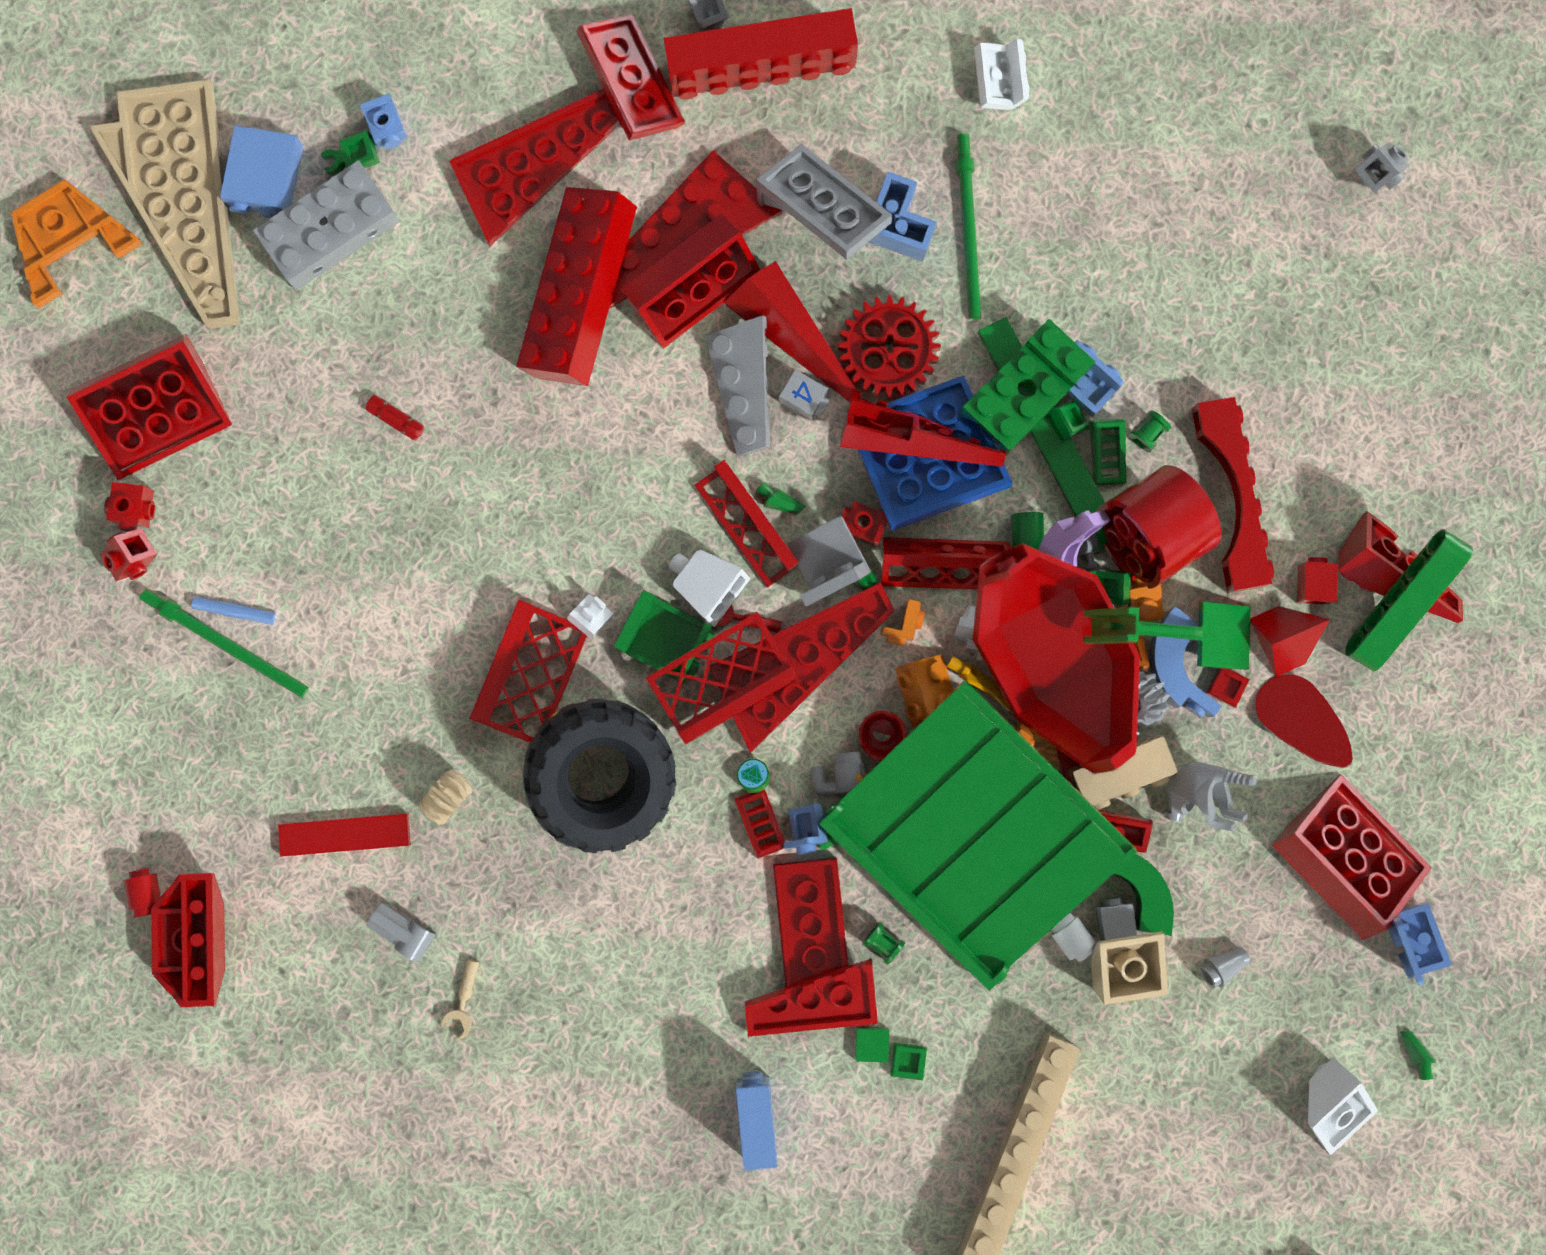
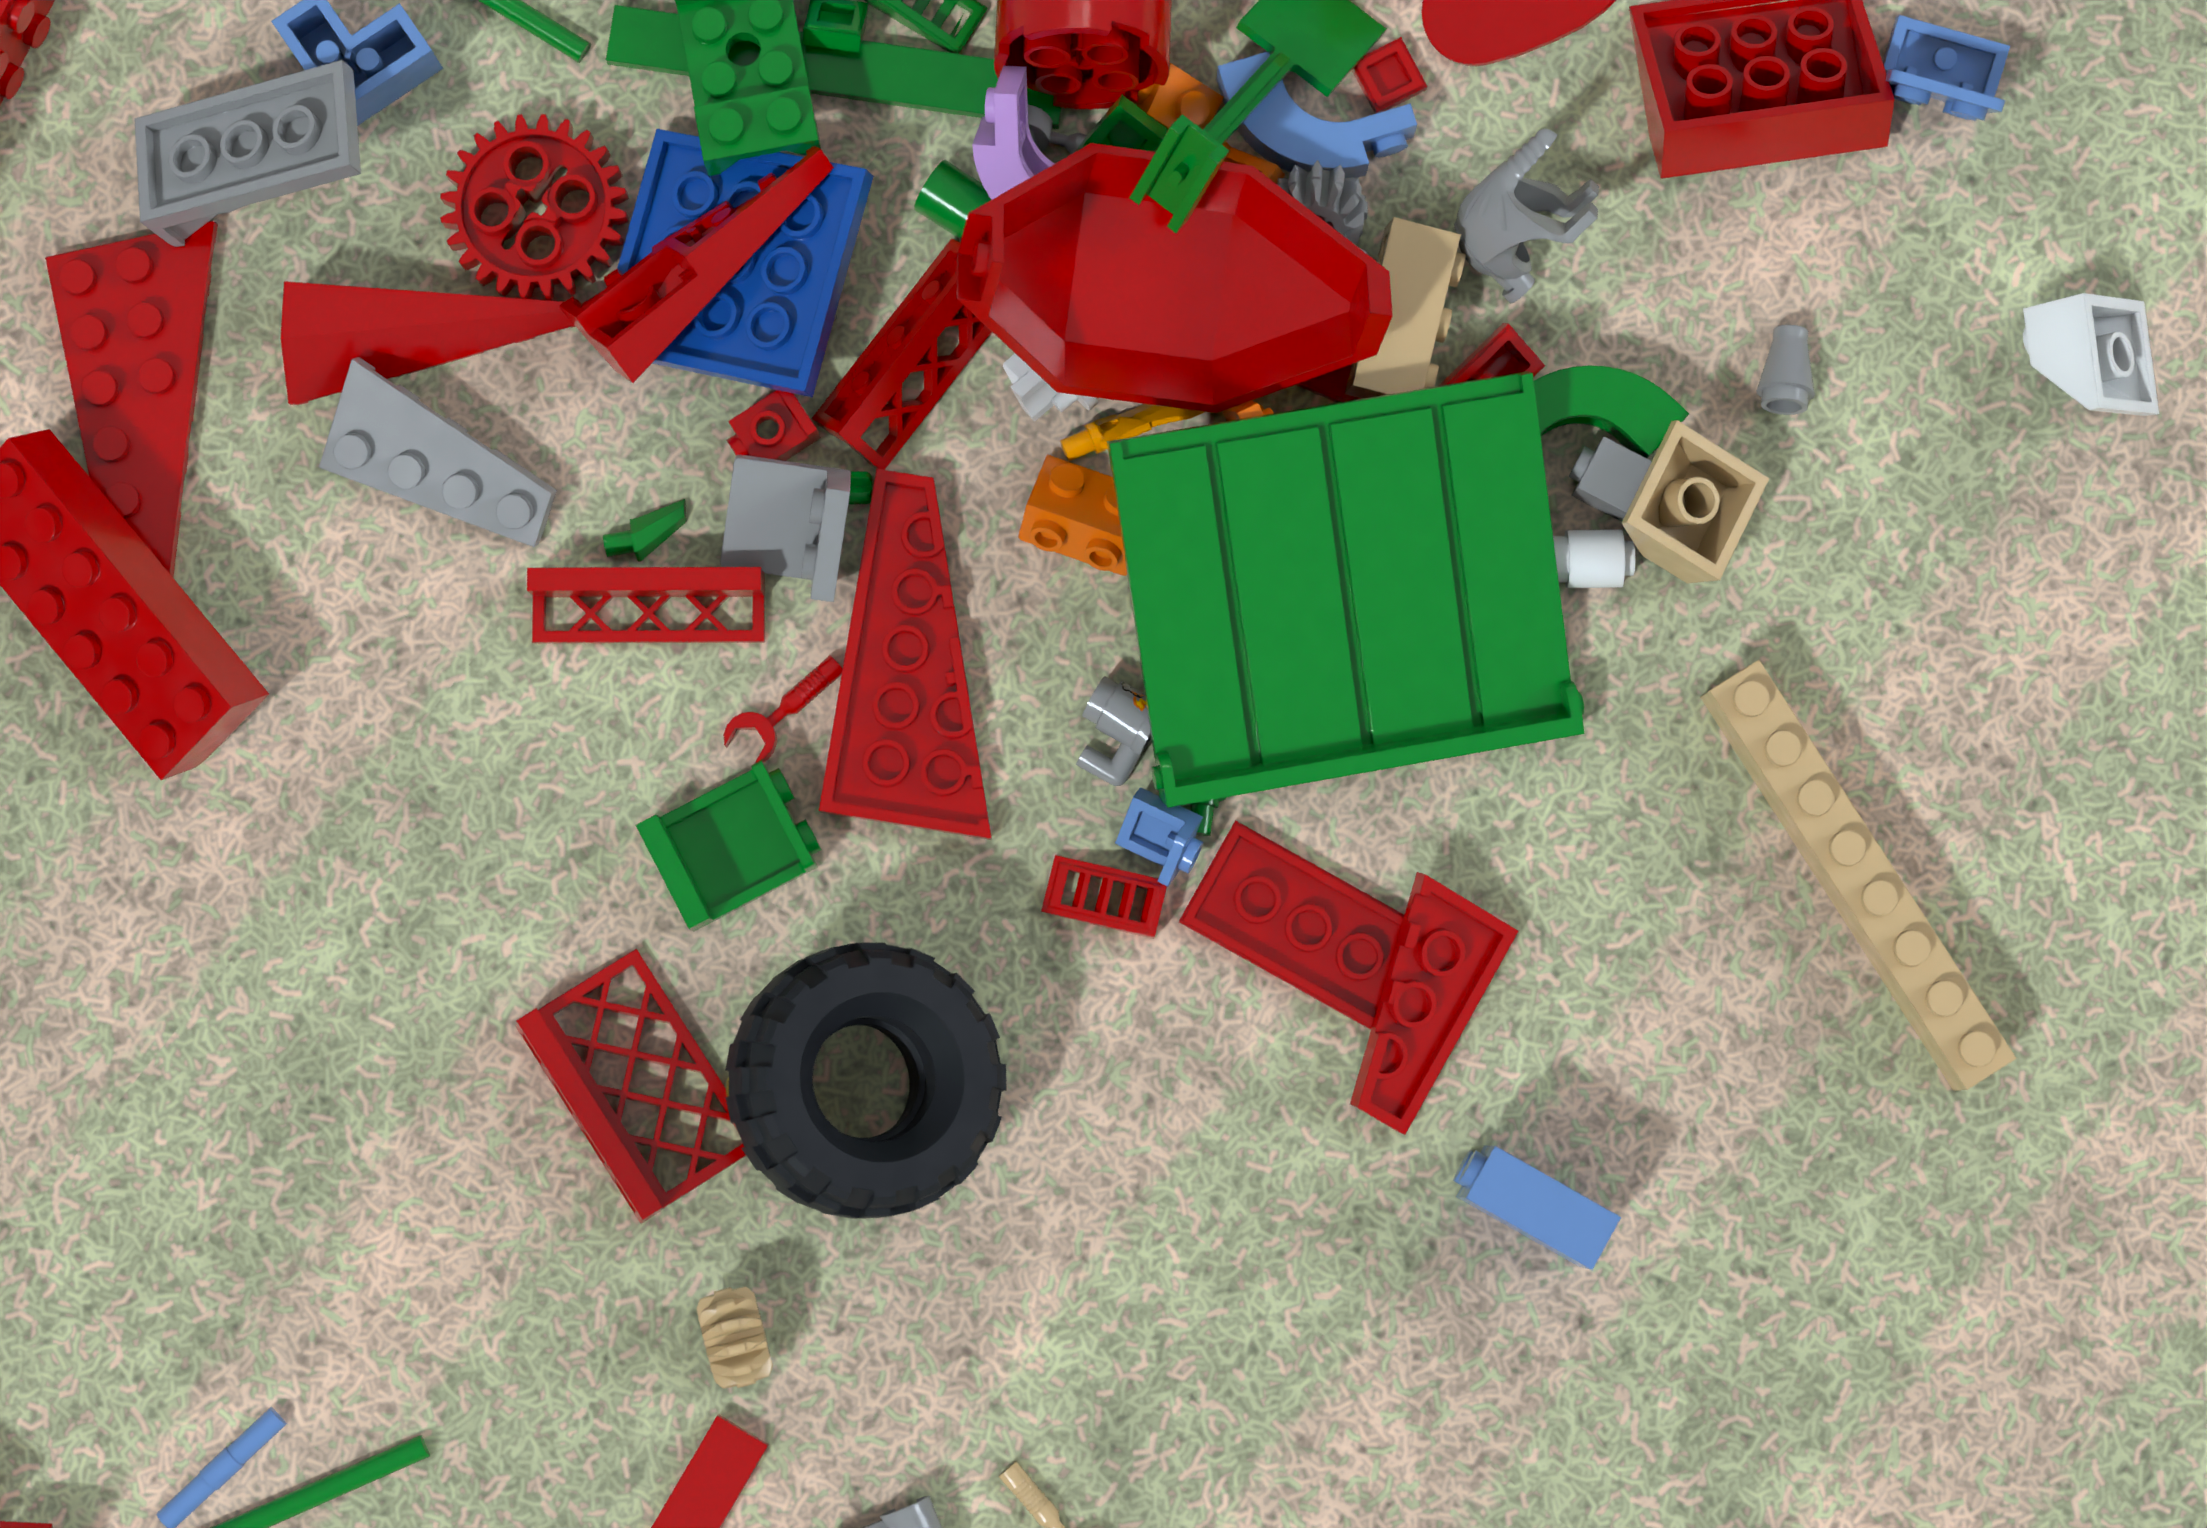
camera: 55 degrees left, 0 degrees up
(394, 417) = (103, 1020): red axle -> none
(590, 615) = (617, 933): white tile -> none
(691, 280) = (221, 427): red slope -> none
(708, 583) = (694, 723): white torso -> none
(738, 701) = (902, 801): red fence -> none
(753, 775) = (1028, 858): tile -> none
(804, 395) = (517, 383): light grey brick -> none
(872, 1044) = (1544, 961): green tile -> none
(883, 943) = (1408, 839): green bush -> none
(884, 723) = (1090, 609): red hair -> none
(908, 1061) = (1605, 925): green tile -> none
(912, 620) = (965, 462): orange bracket -> none
(1419, 1055) = (2105, 185): green bar -> none

